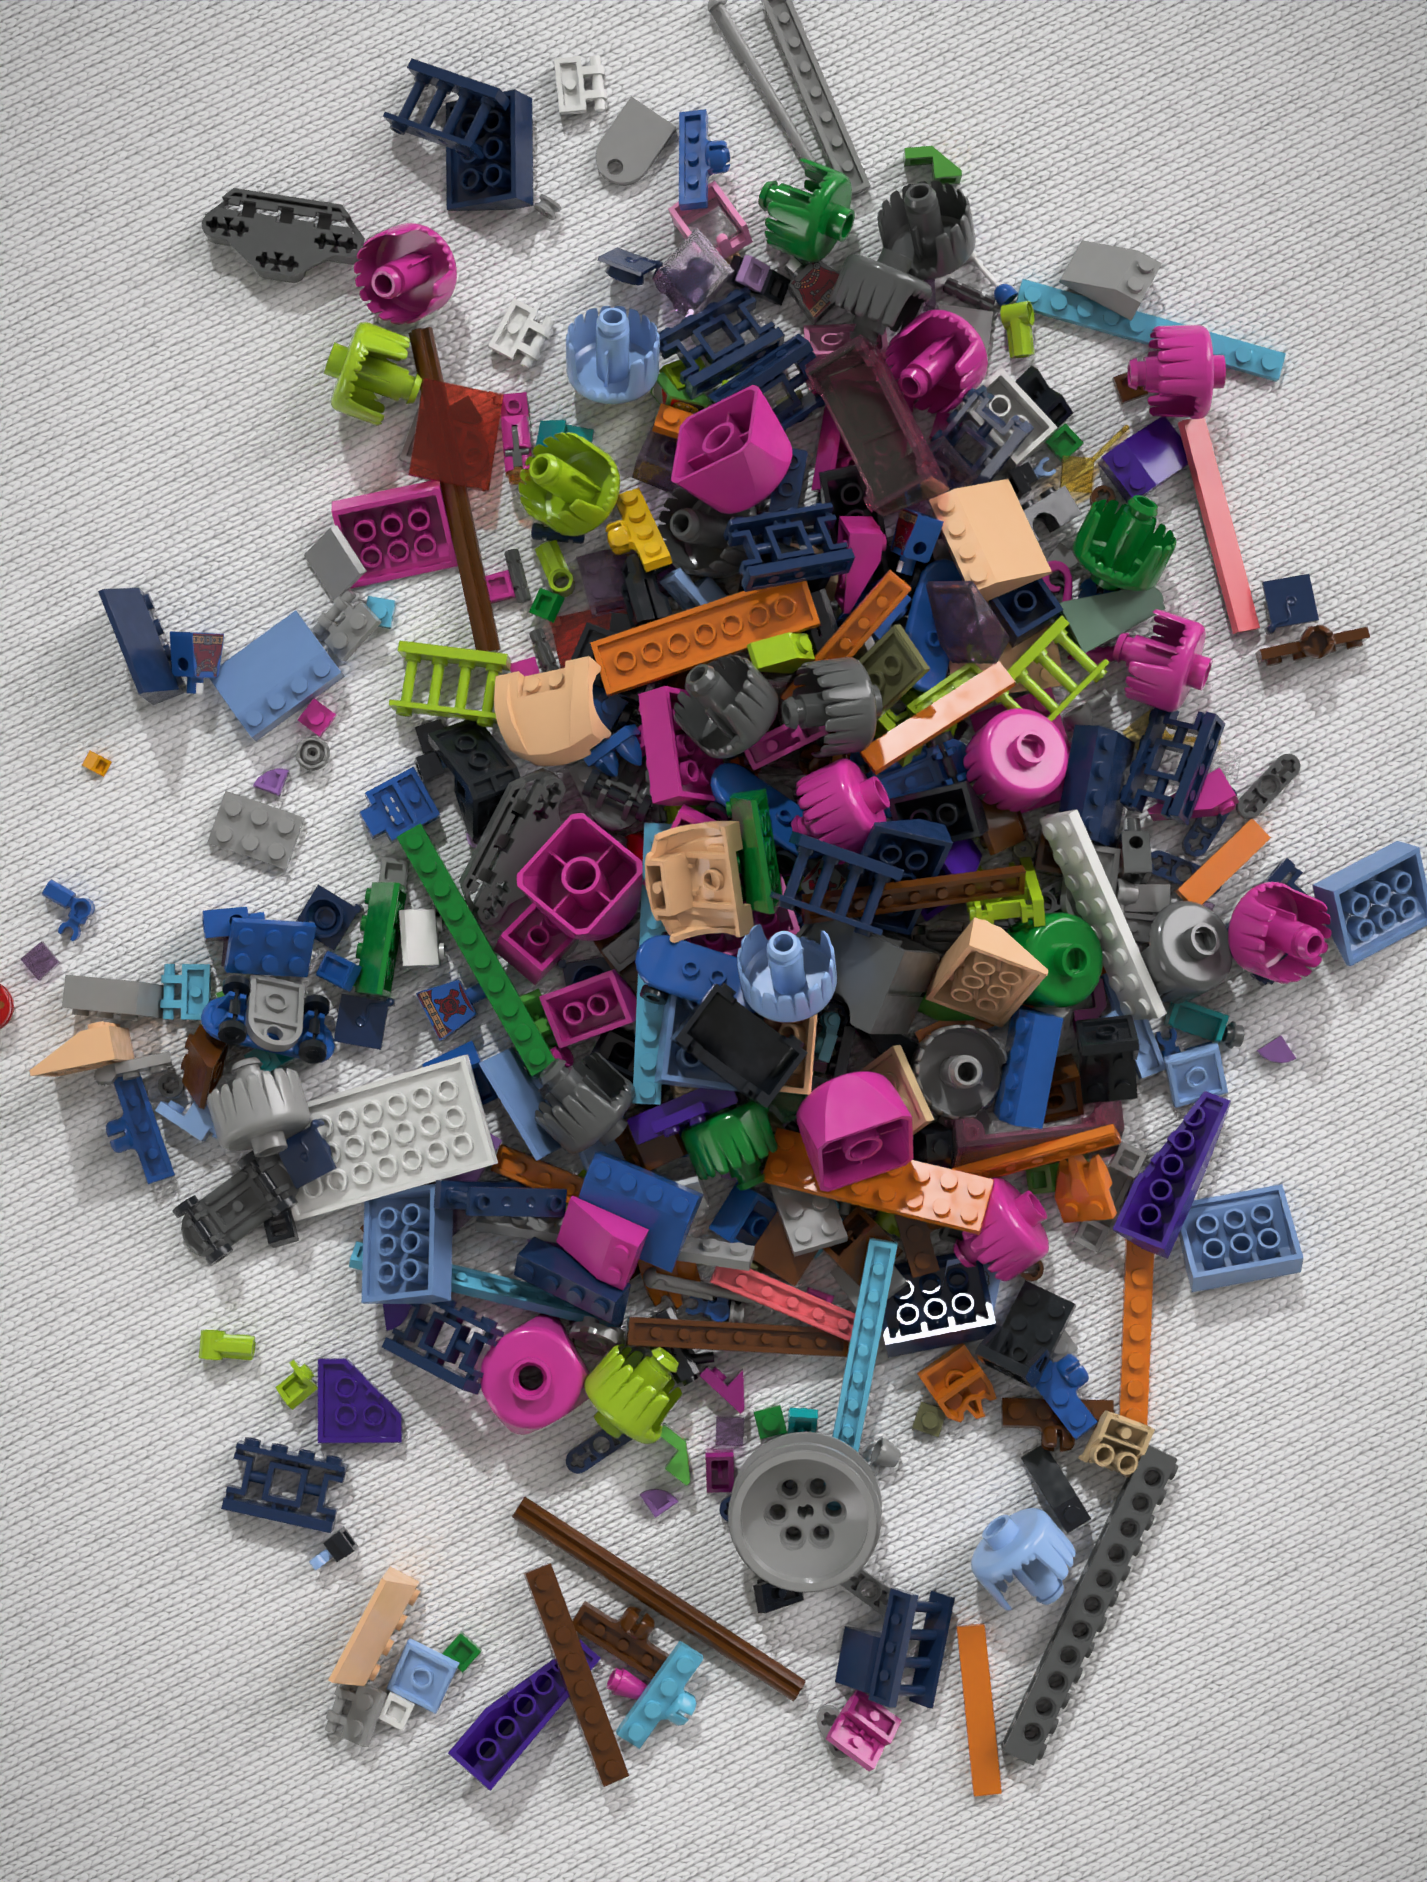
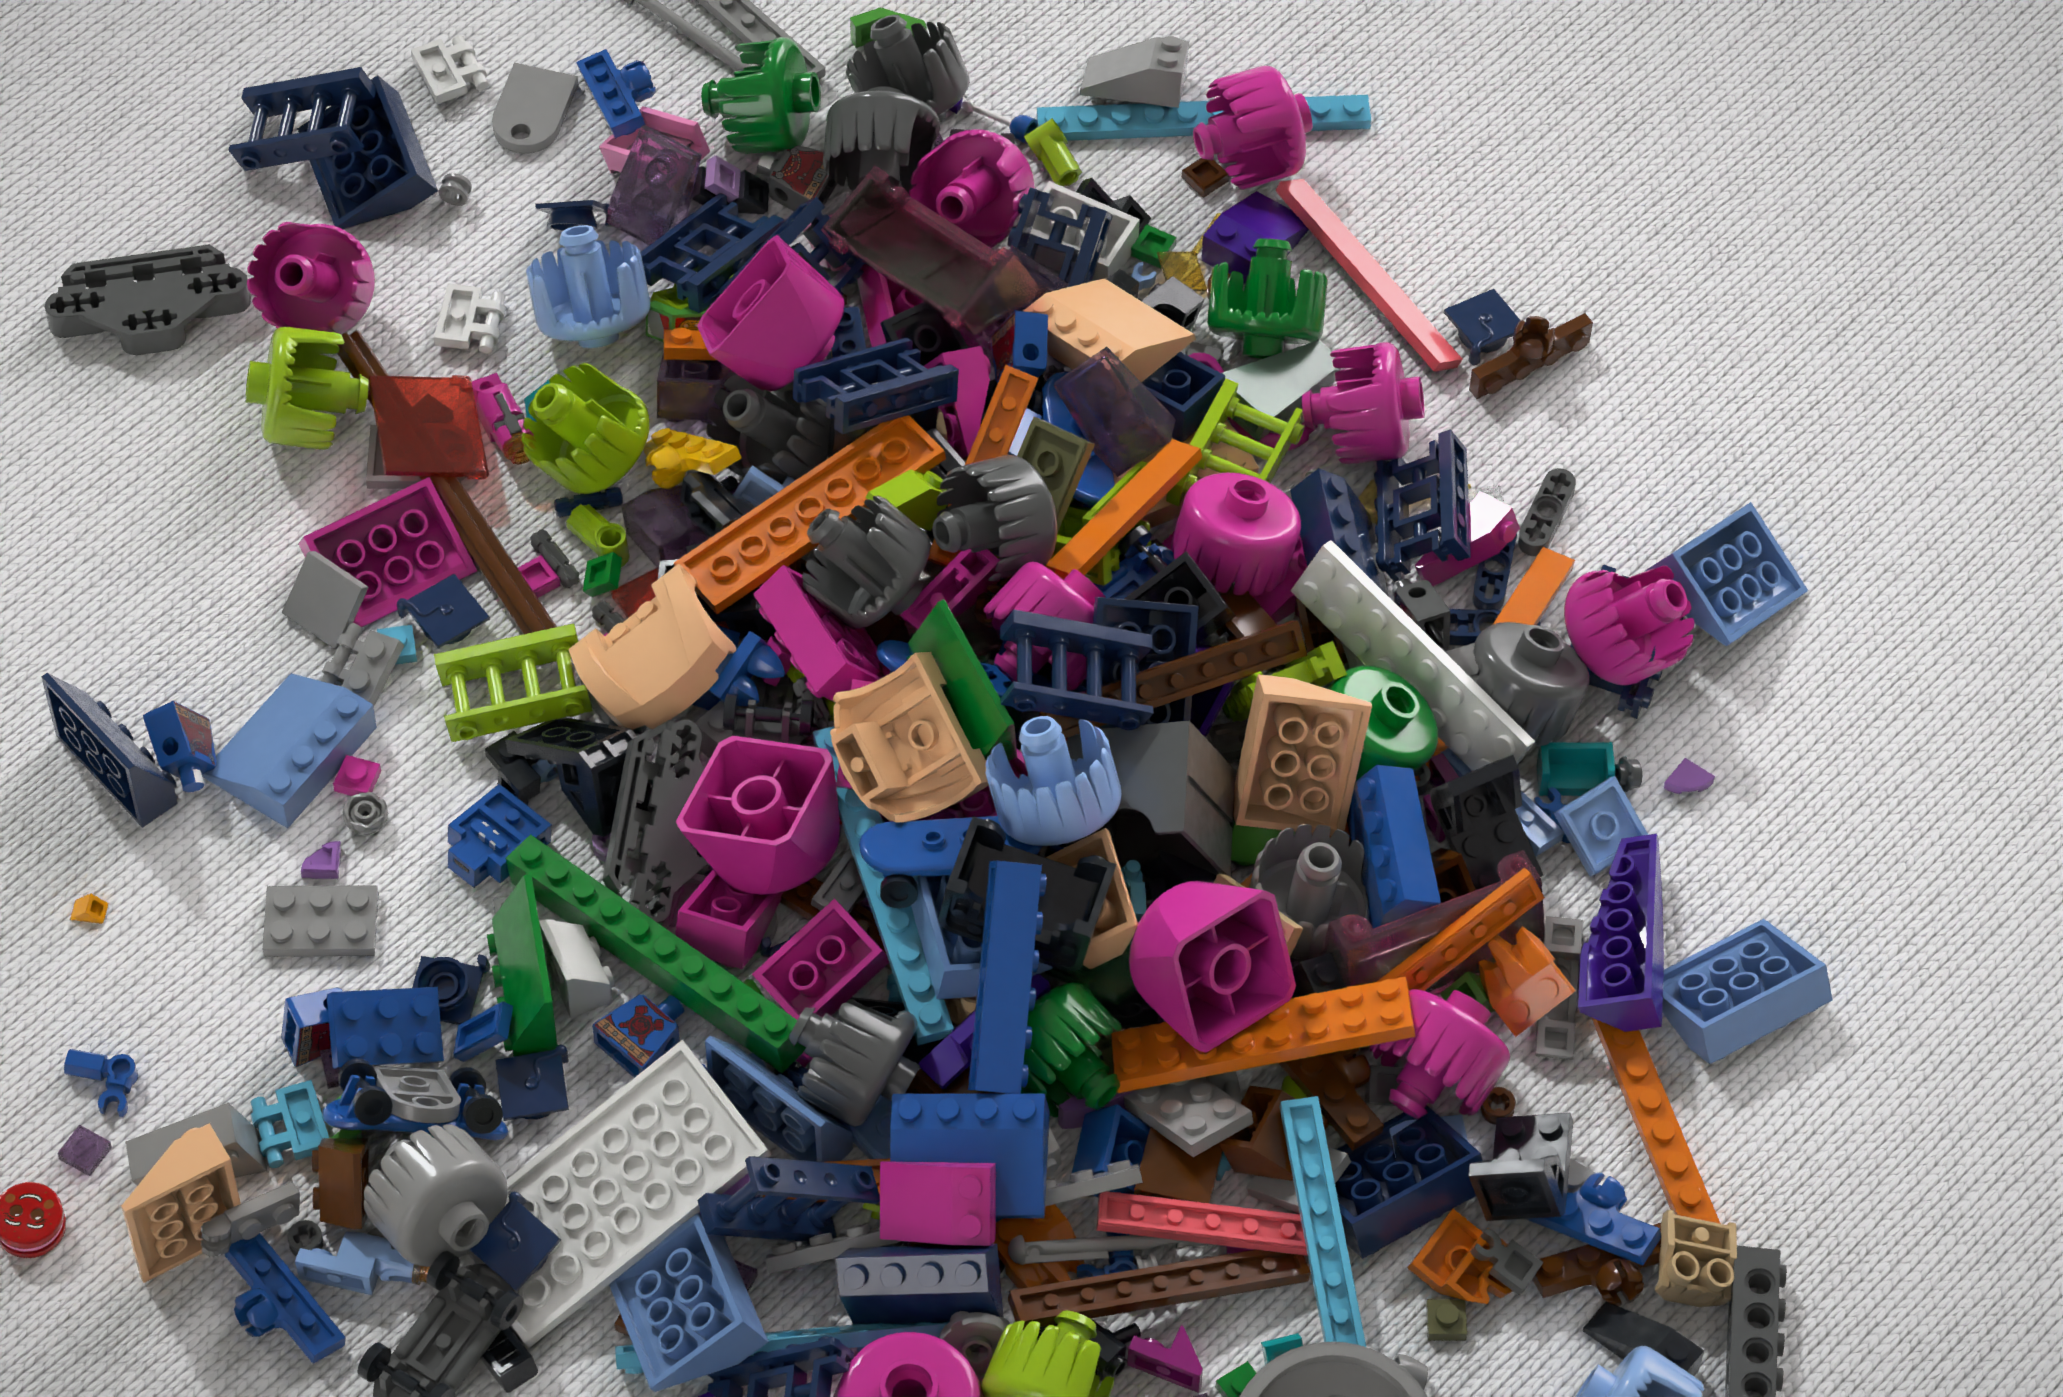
camera: 20 degrees left, 30 degrees down
(421, 599) = (444, 611): none -> dark blue hat
(700, 1106) = (1006, 976): none -> blue brick
(985, 1404) = (1512, 1264): none -> dark grey plate

